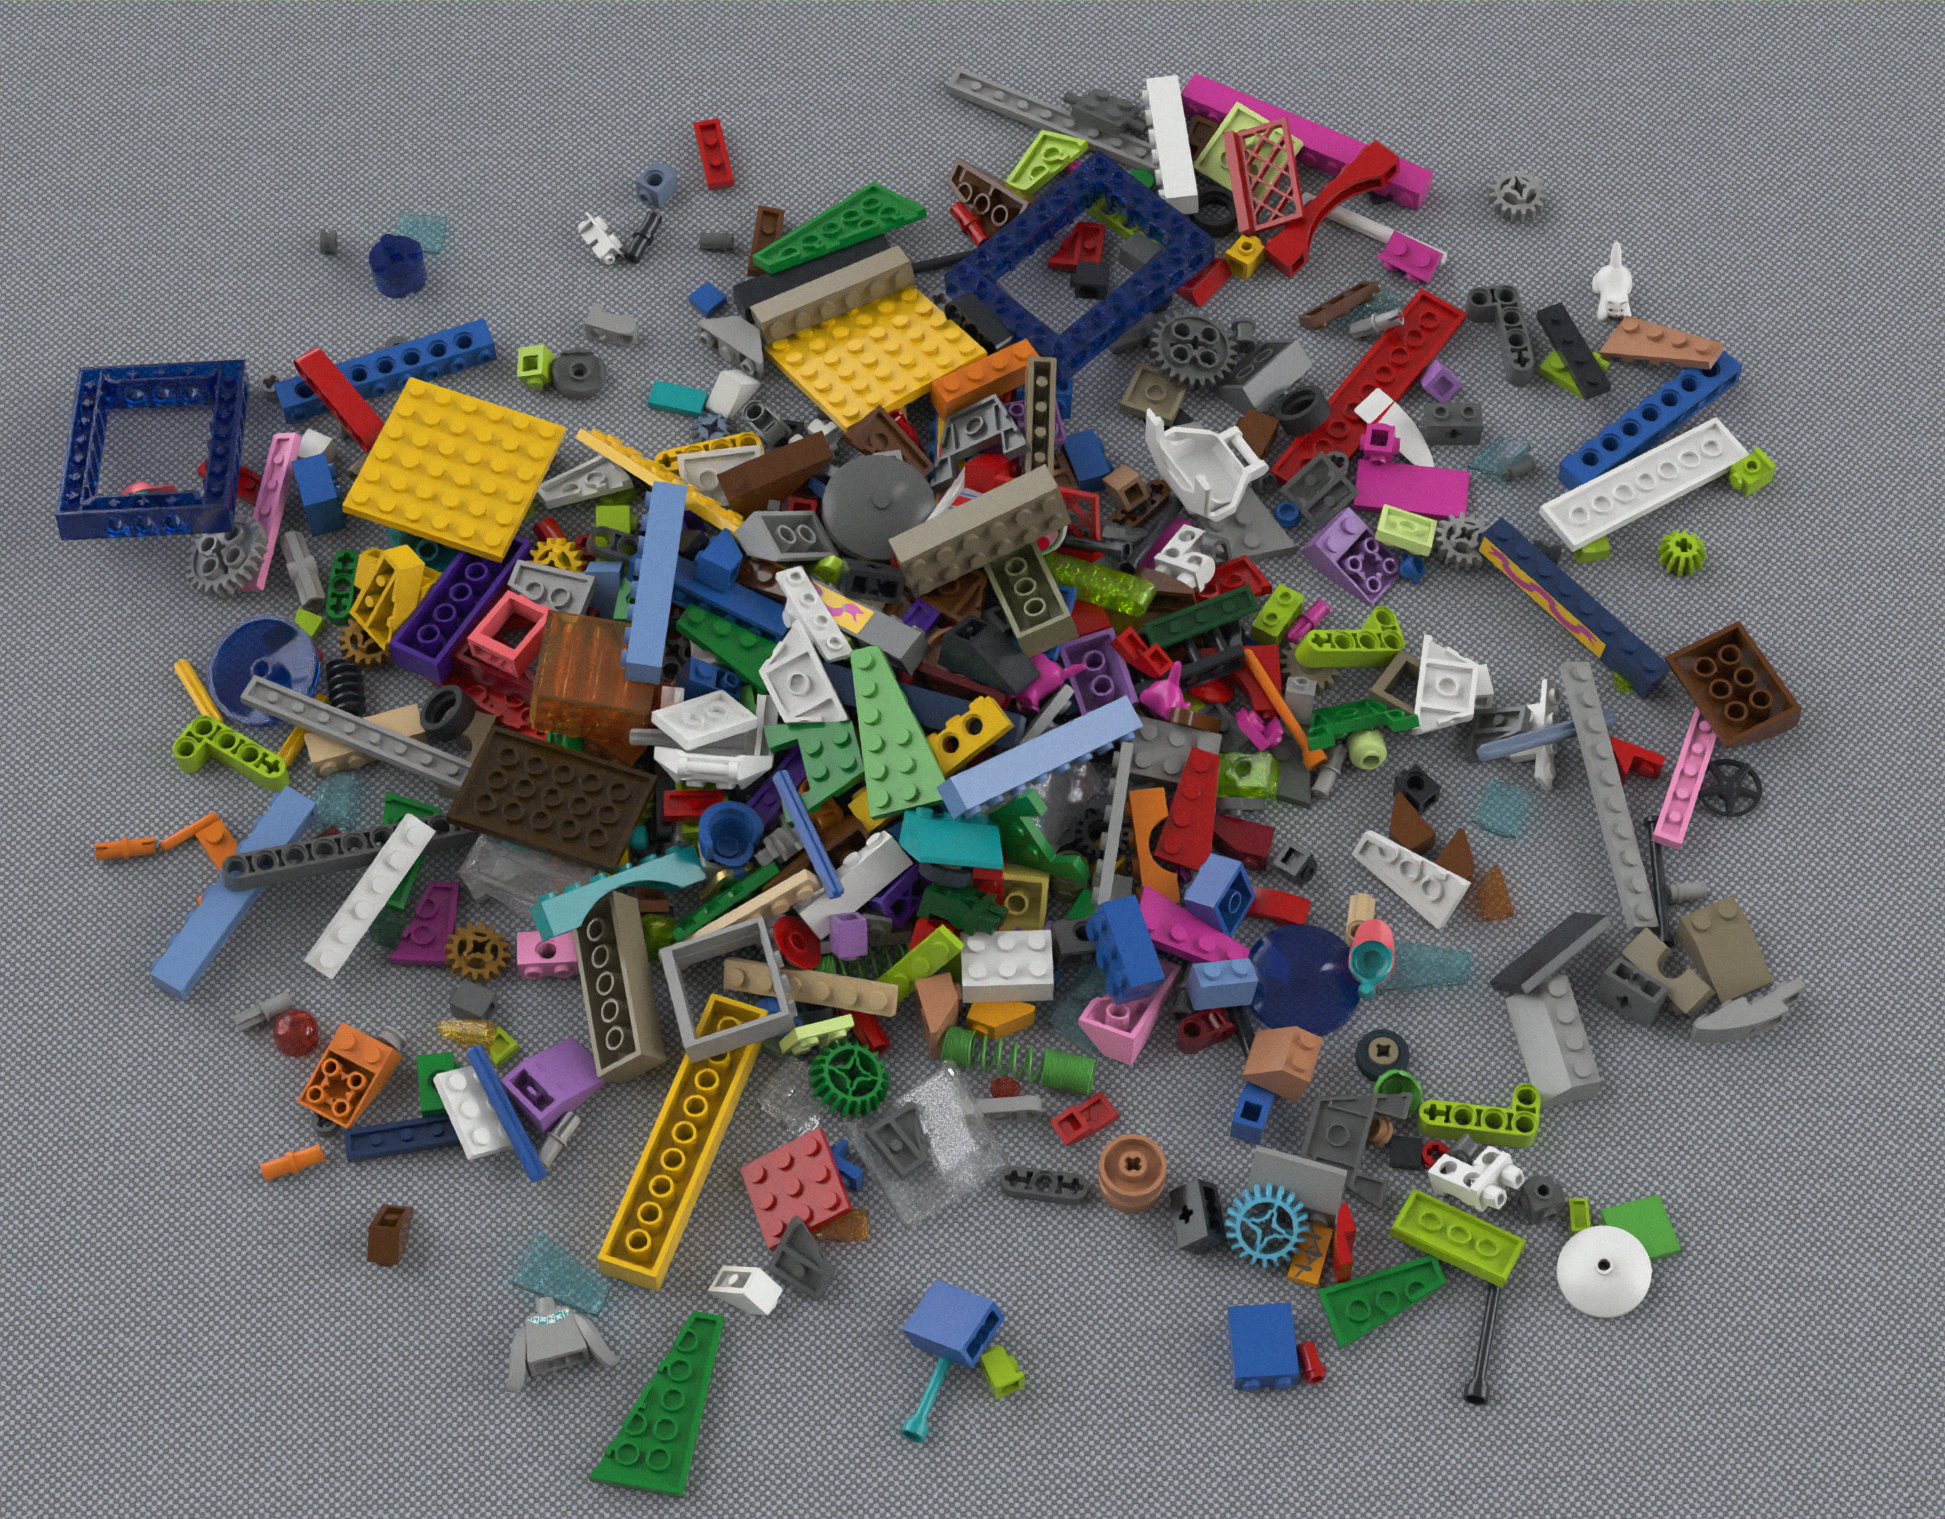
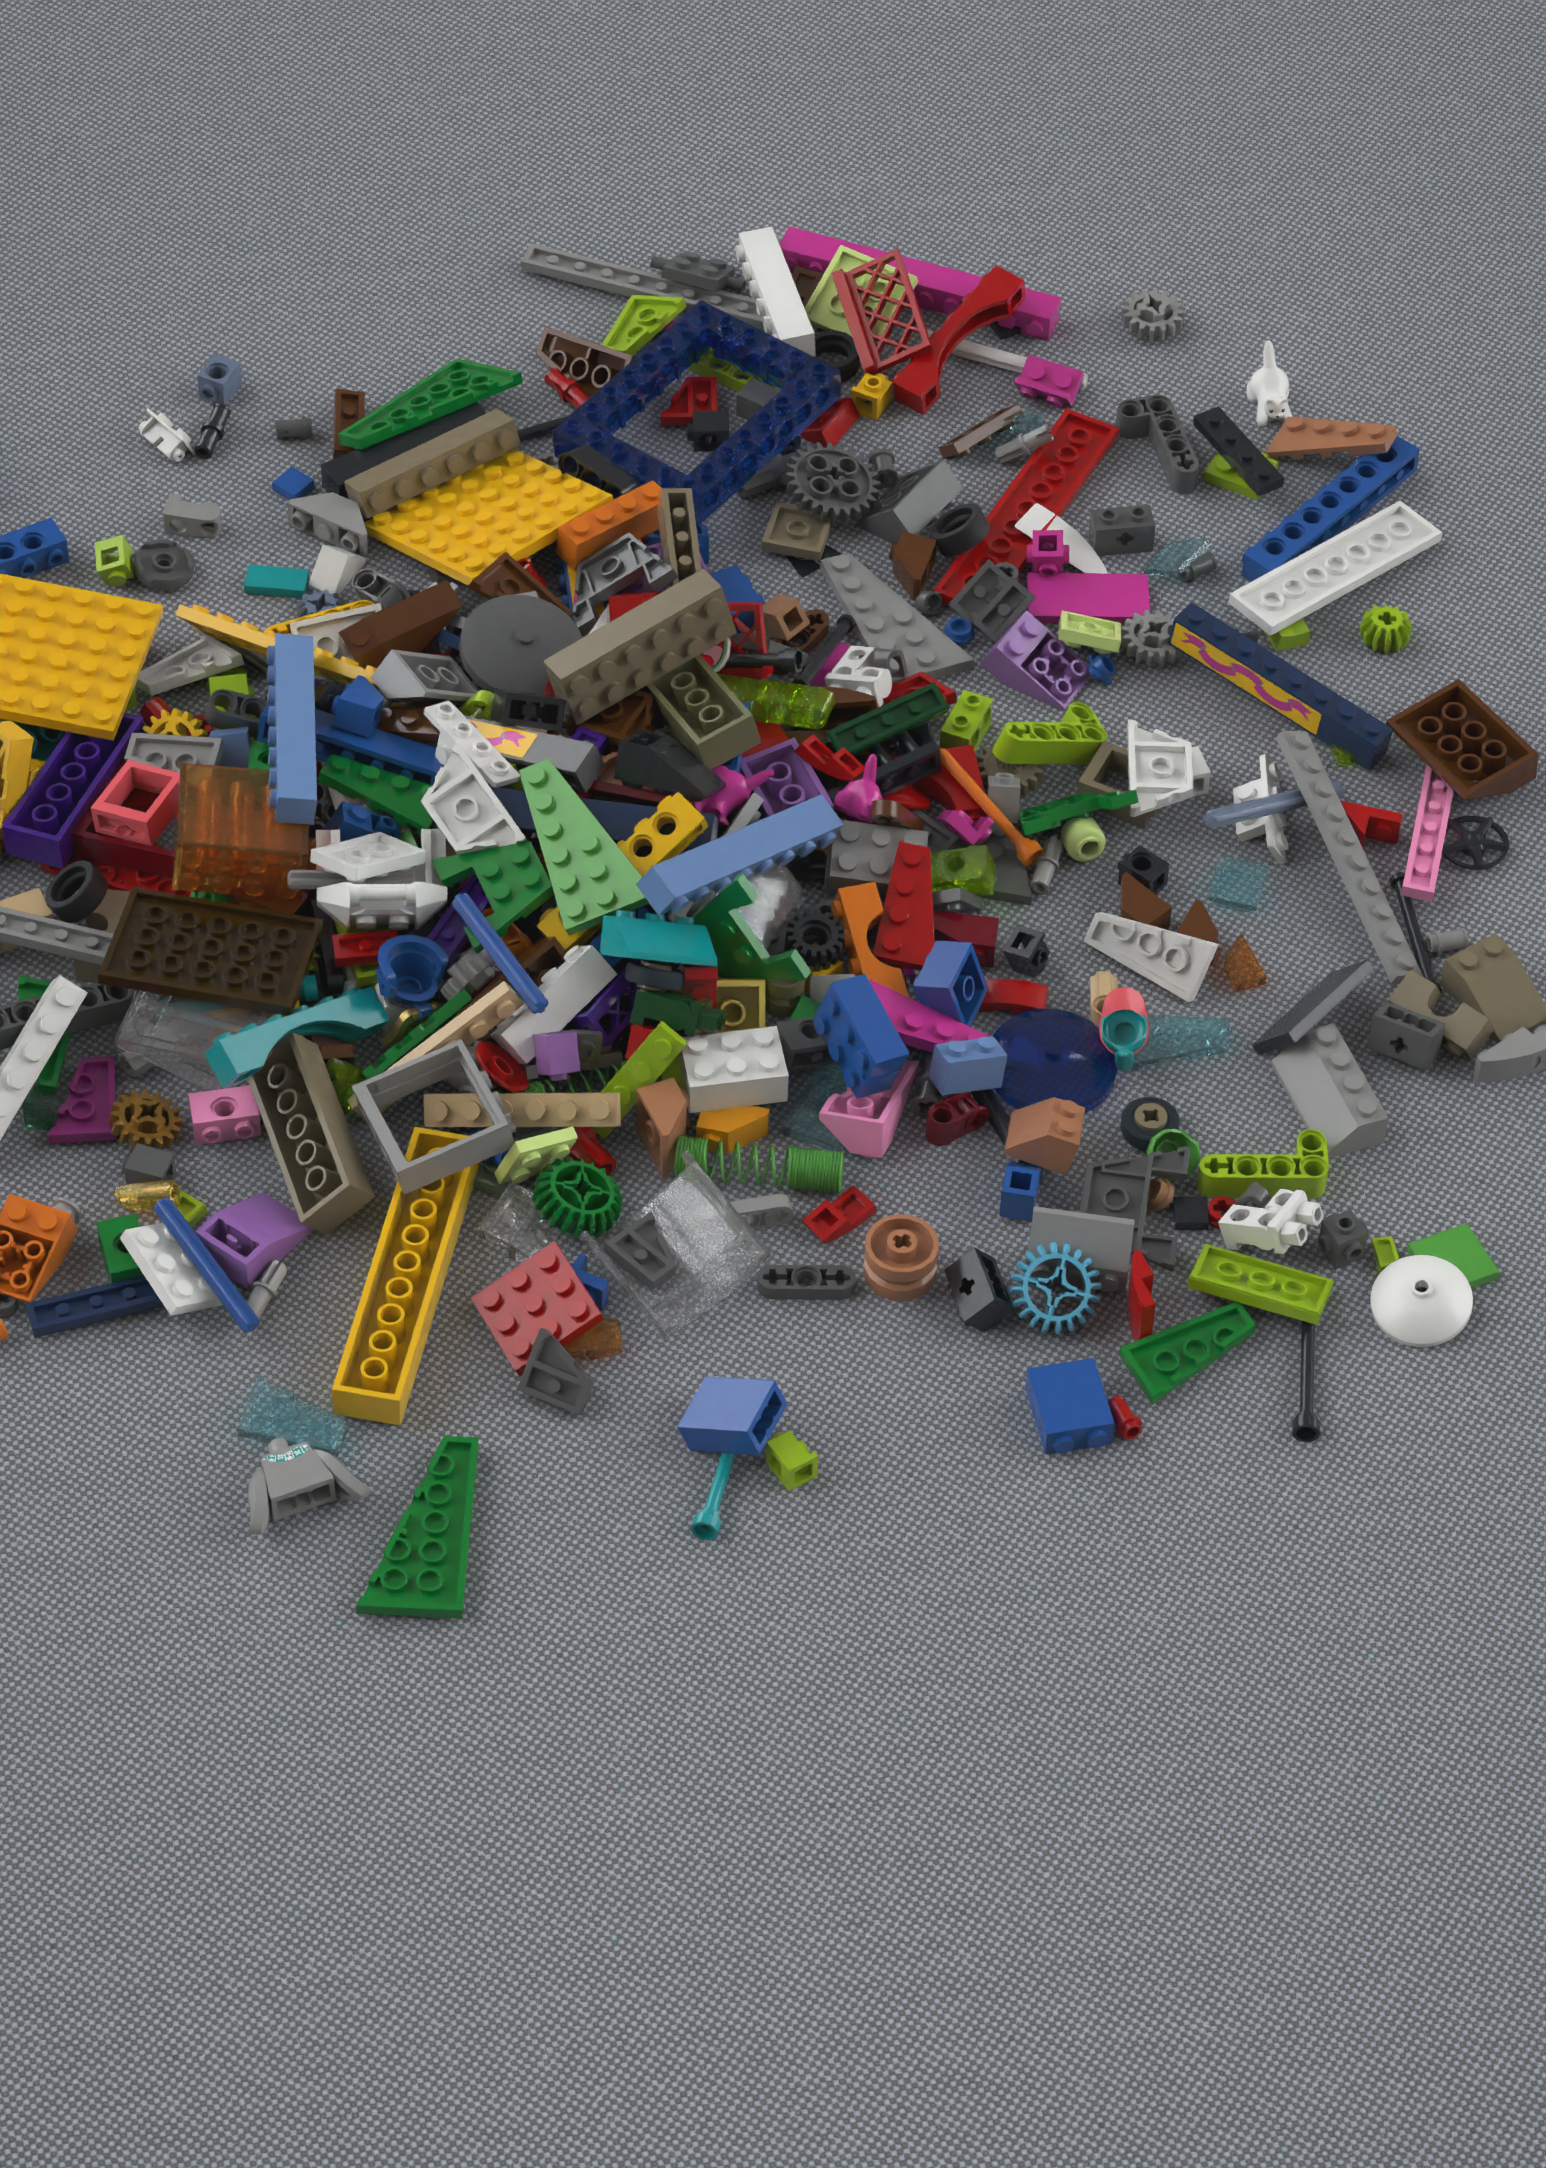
camera: 10 degrees left, 10 degrees down
(389, 1235) = (93, 1400): reddish brown slope -> none
(713, 154) = (277, 347): red plate -> none
(746, 1289) = (499, 1410): white slope -> none
(1005, 1087) = (747, 1190): clear red plate -> none
(1112, 815) = (826, 912): light grey plate -> none
(1202, 466) = (861, 585): white piece -> none
(1307, 621) = (995, 726): dark pink axle -> none
(1308, 1264) = (1105, 1324): light orange tile -> none
(1439, 381) = (1101, 491): medium lavender panel -> none
(1494, 725) = (1215, 797): dark grey wing -> none
(1752, 472) = (1446, 548): lime brick -> none

